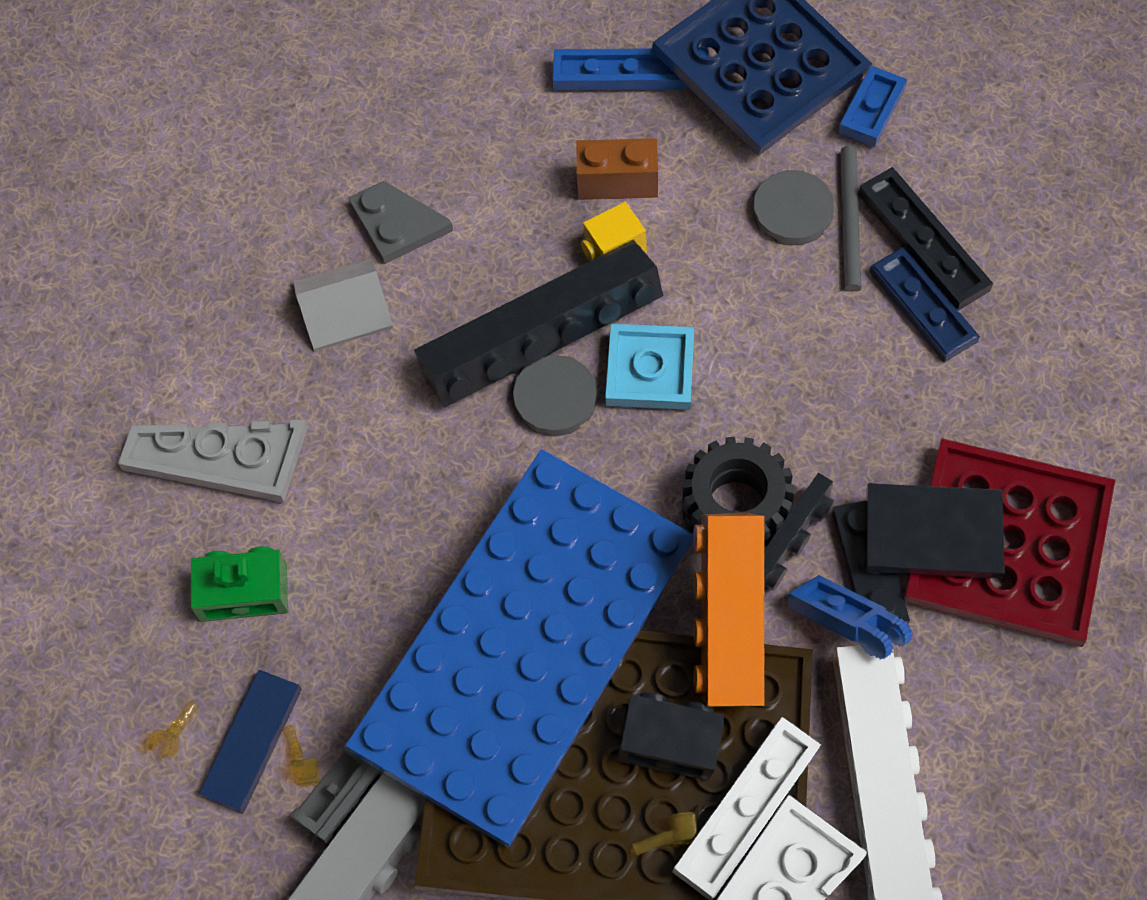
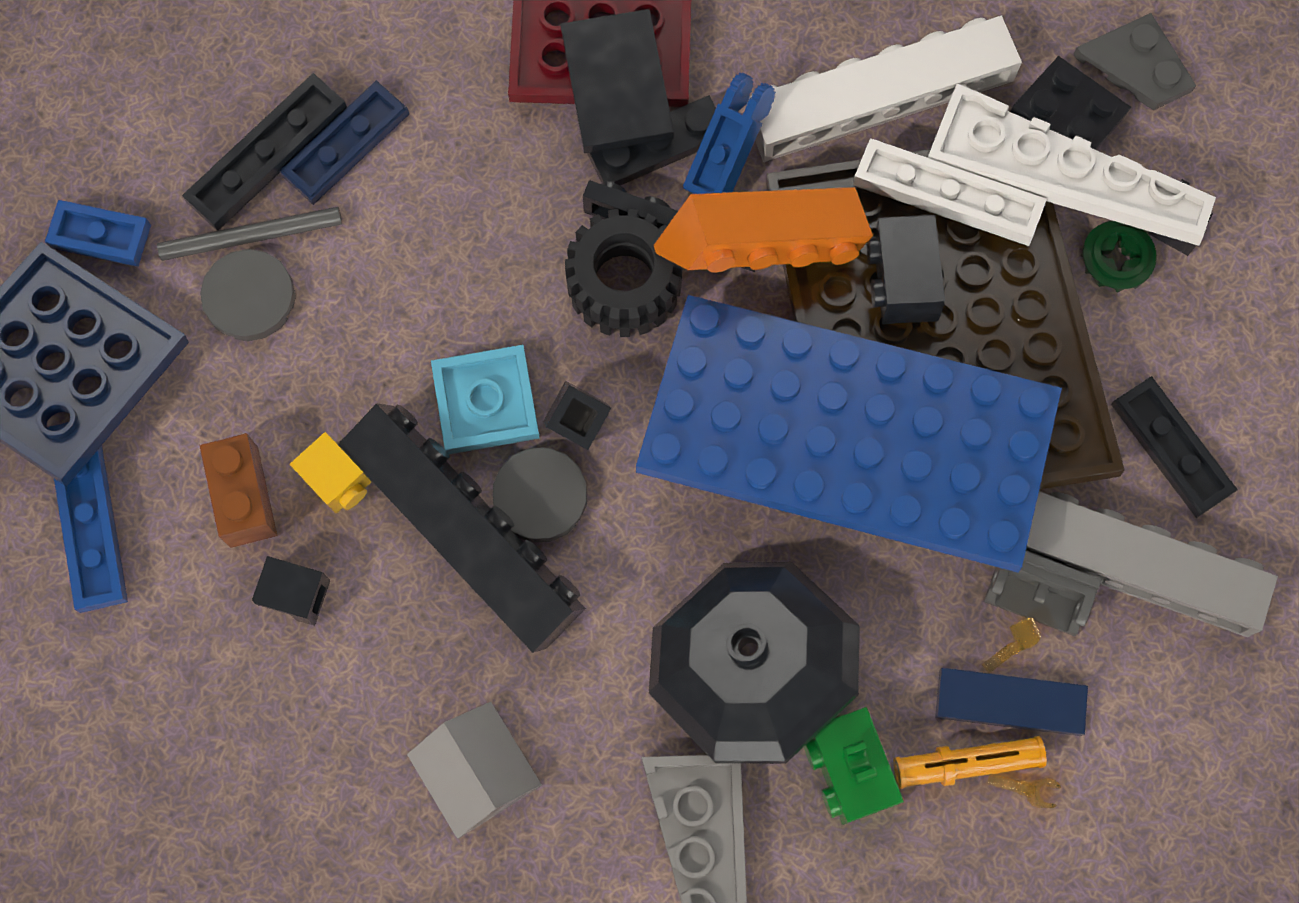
camera: 110 degrees left, 10 degrees up
(220, 638) = (948, 764): none -> light orange pin
(343, 549) = (765, 702): none -> black rock
(396, 220) = (349, 740): dark grey wing -> none
(524, 194) = (291, 590): none -> black panel
(611, 427) = (576, 415): none -> black brick
(682, 833) = (991, 242): clear yellow hand -> none

